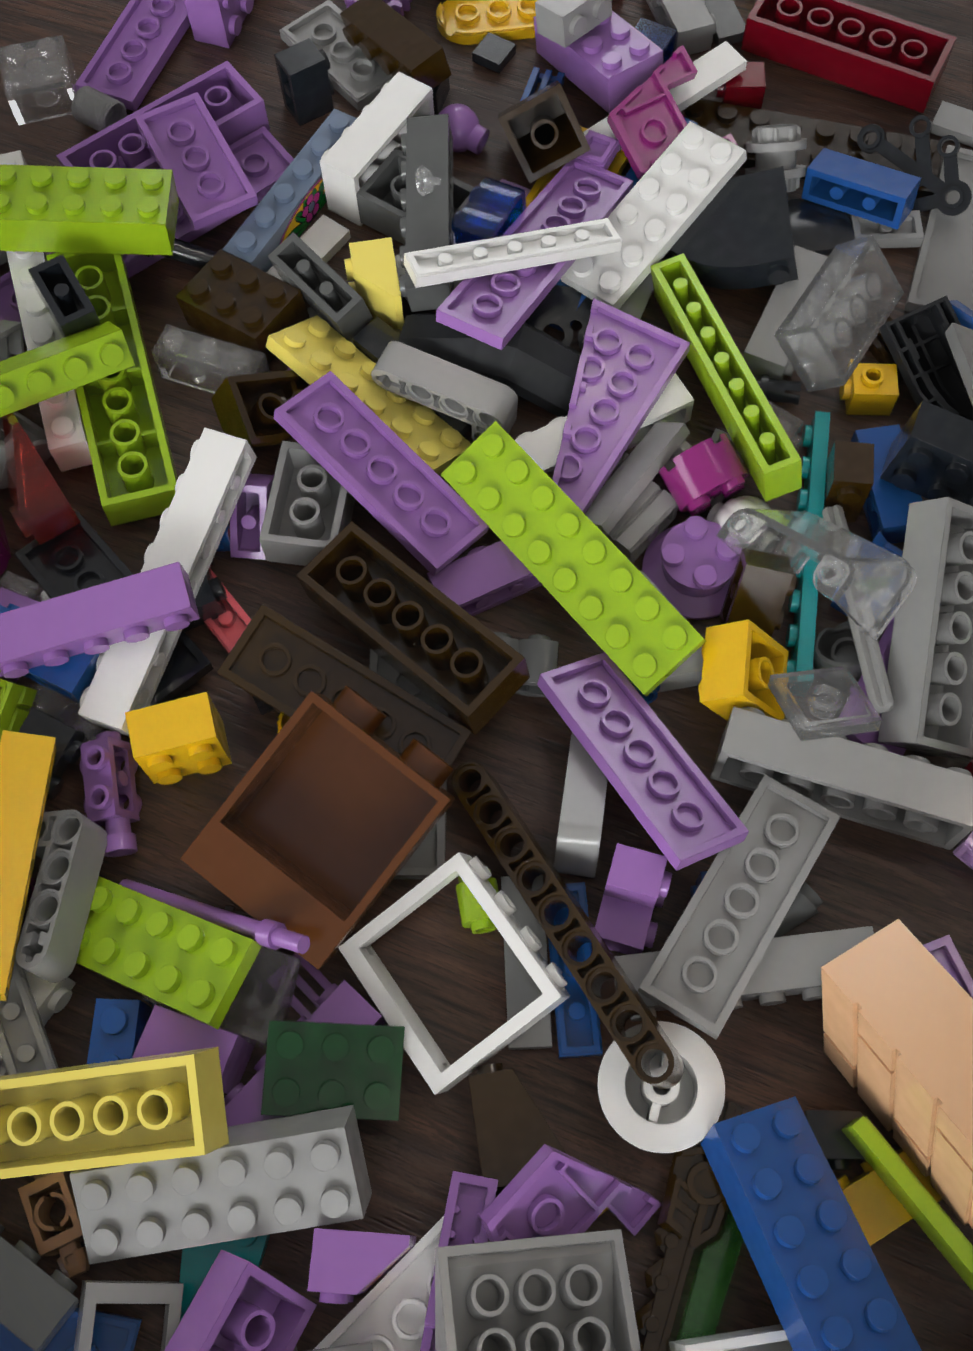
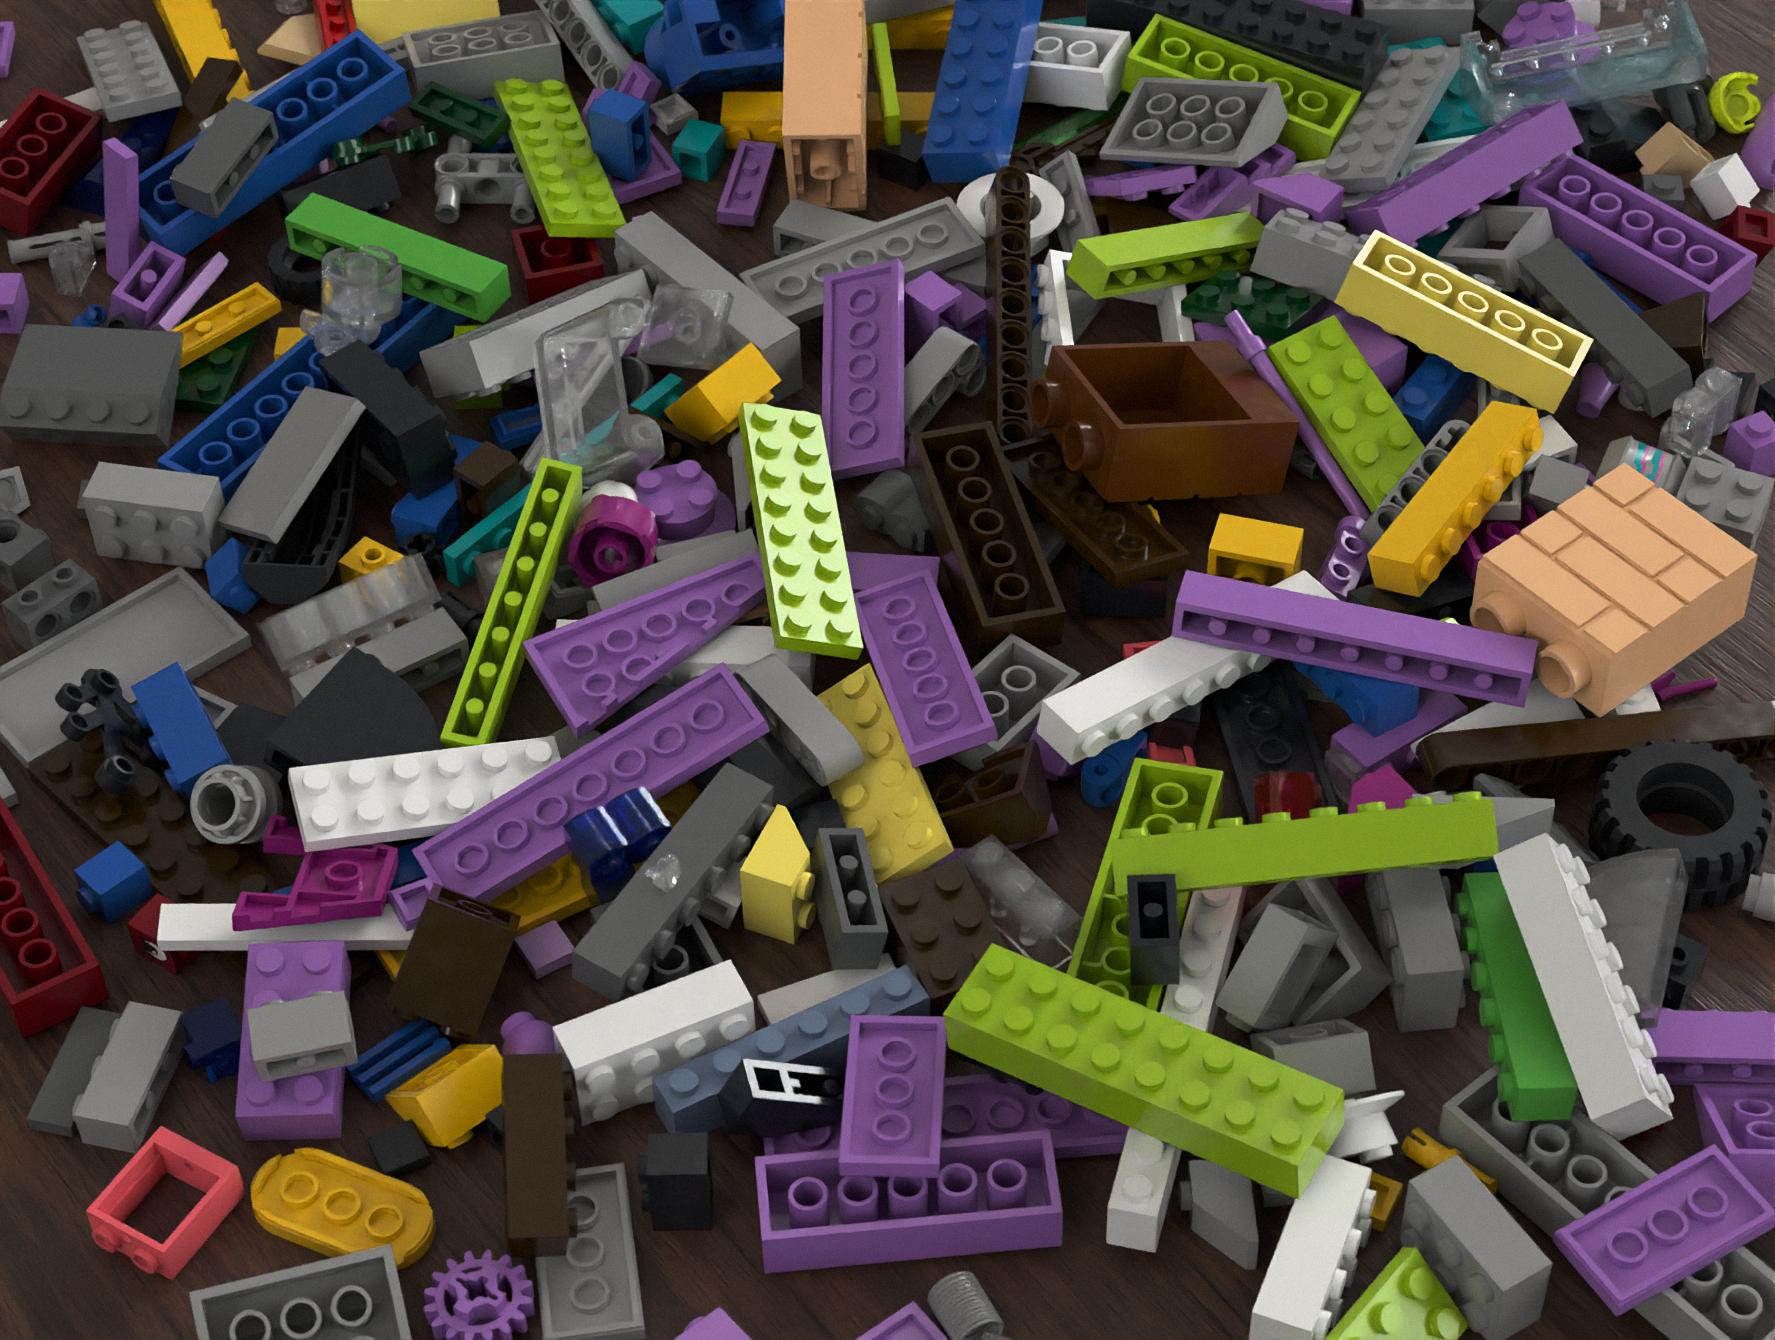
camera: 150 degrees left, 20 degrees down
(272, 145) = (781, 1098): none -> black slope
(445, 1090) = (1164, 255): none -> lime brick
(485, 80) = (451, 1094): none -> yellow slope
(511, 252) = (633, 764): white tile -> none
(582, 1115) = (1078, 216): none -> light grey tile
(809, 94) = (112, 882): none -> blue brick
(849, 417) = (430, 551): none -> black gear

